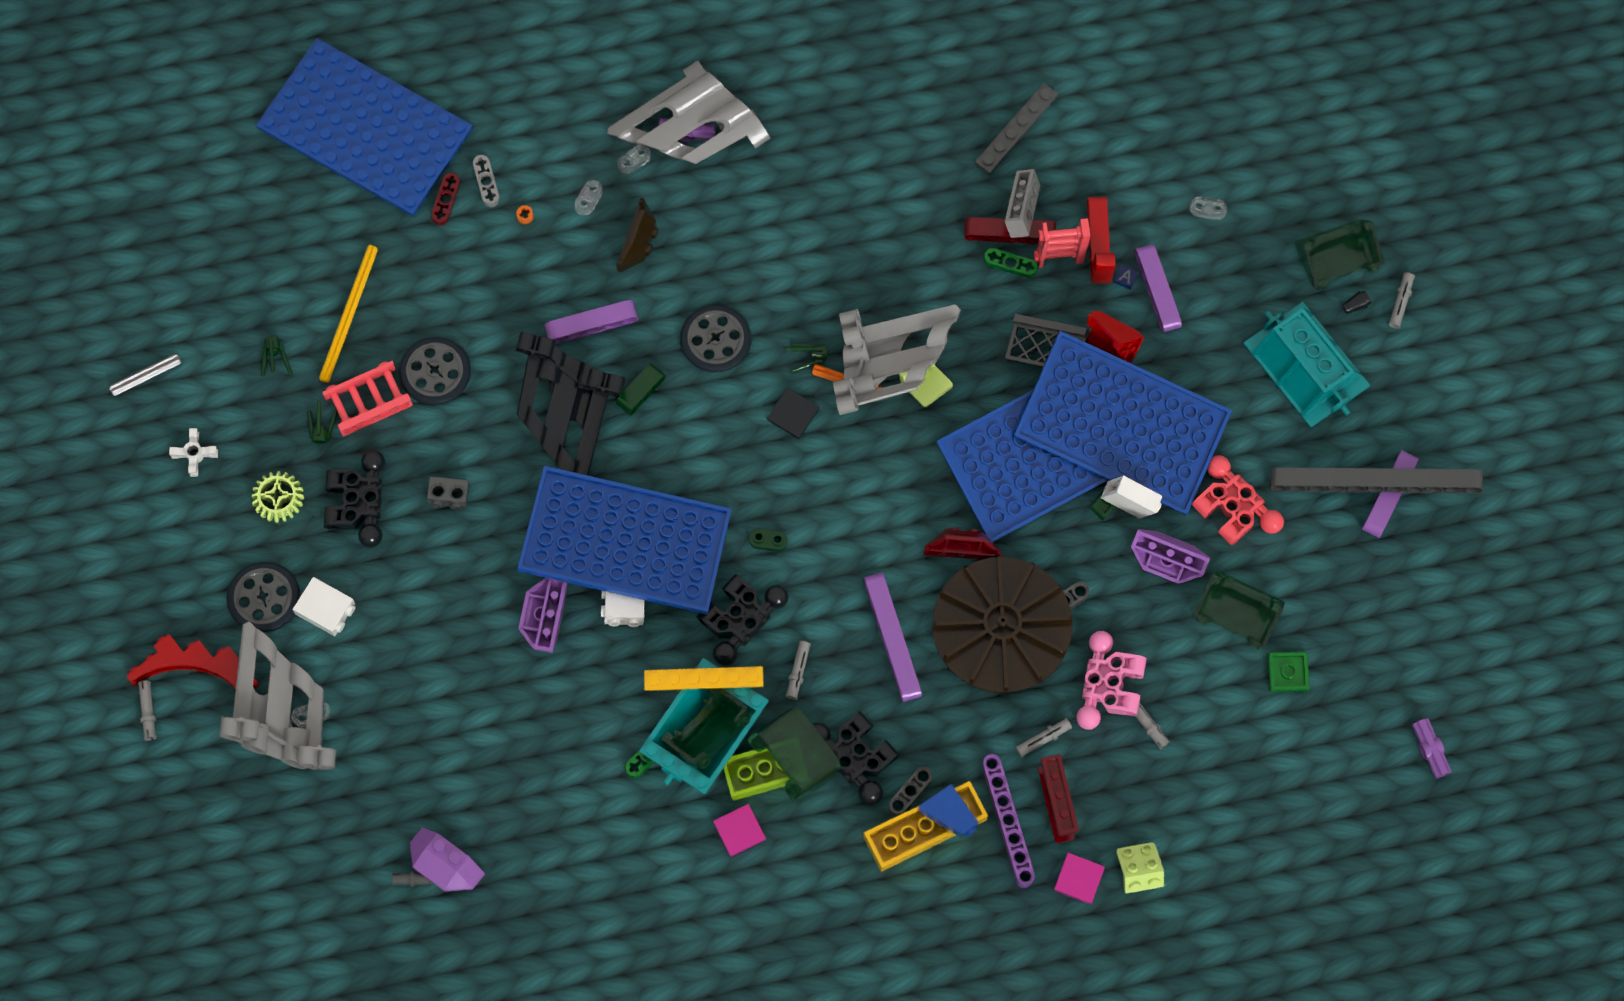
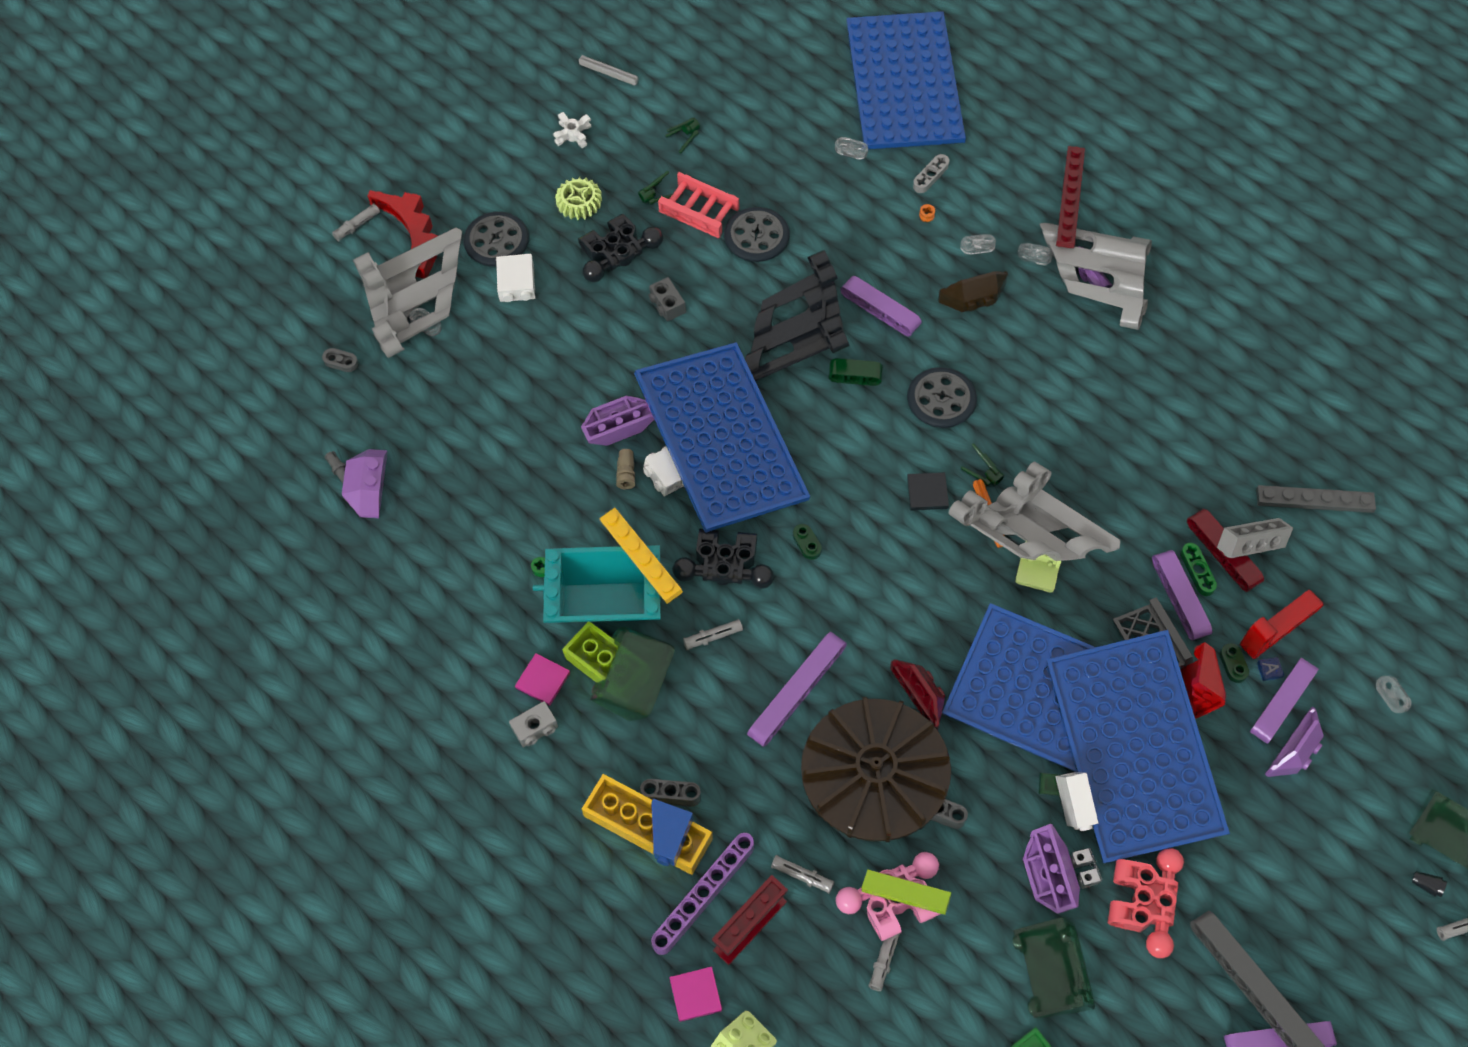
camera: 60 degrees right, 10 degrees down
(294, 811) = (341, 360): none -> dark grey plate
(348, 314) = (754, 155): yellow axle -> none
(405, 226) = (851, 148): none -> clear plate
(447, 206) = (905, 152): dark red beam -> none
(593, 638) = (625, 468): none -> dark tan axle
(604, 88) = (1070, 197): none -> dark red plate
(708, 730) = (600, 591): clear green windscreen -> none
(773, 850) = (538, 714): none -> light grey brick
(883, 755) = (687, 748): black connector -> none
(1023, 292) = (1181, 595): none -> medium lavender beam
(1063, 243) = (1265, 595): coral fence -> none
(1102, 300) = (1234, 661): none -> dark green plate
(1115, 671) = (906, 892): none -> lime tile
(1191, 528) = (1087, 859): none -> flat silver piece
(1199, 307) = (1299, 747): none -> medium lavender wedge
(1306, 364) = (1333, 877): teal piece -> none

